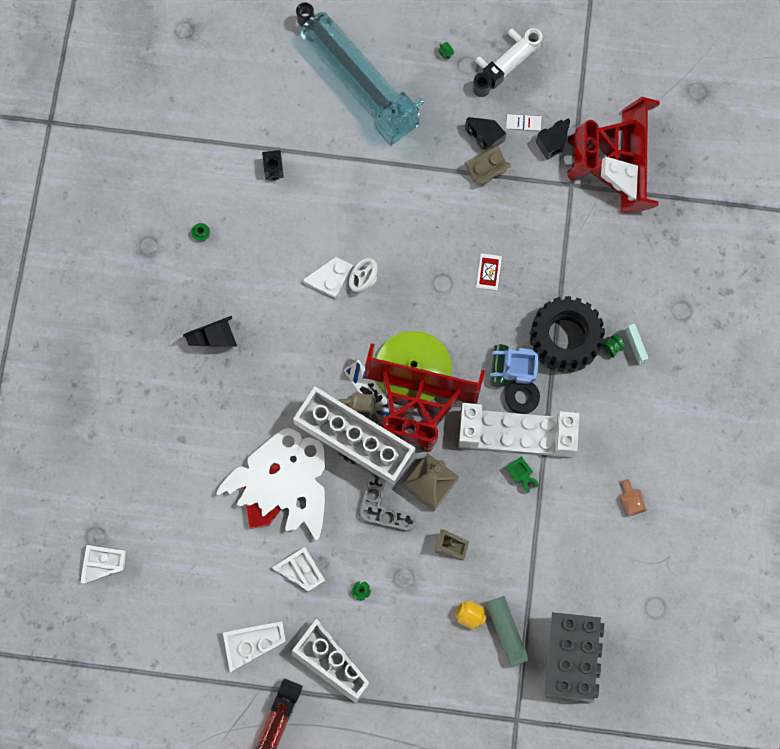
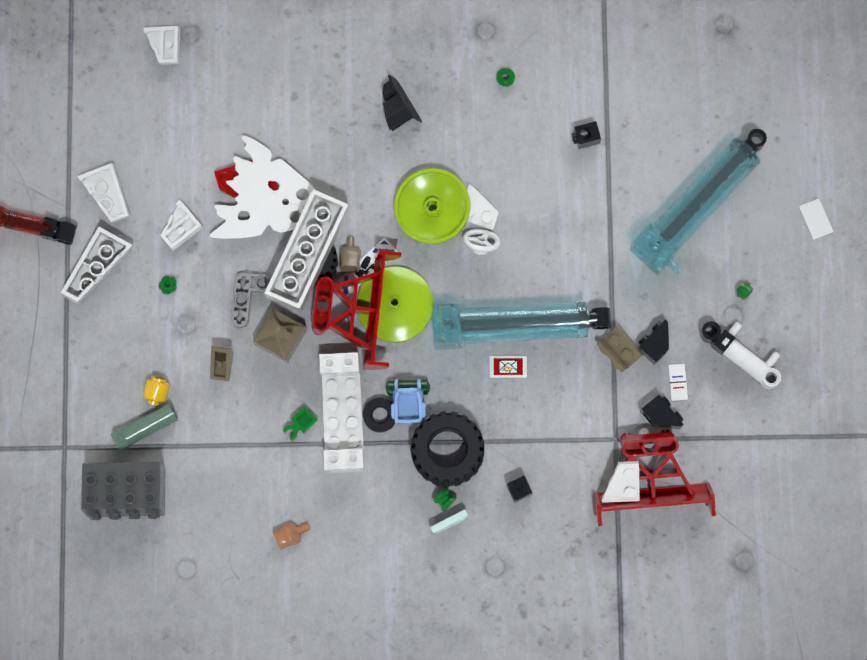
camera: 90 degrees right, 5 degrees up
(326, 299) = (431, 188): none -> lime dish
(450, 256) = (515, 323): none -> clear light blue piece
(612, 275) = (519, 489): none -> black brick

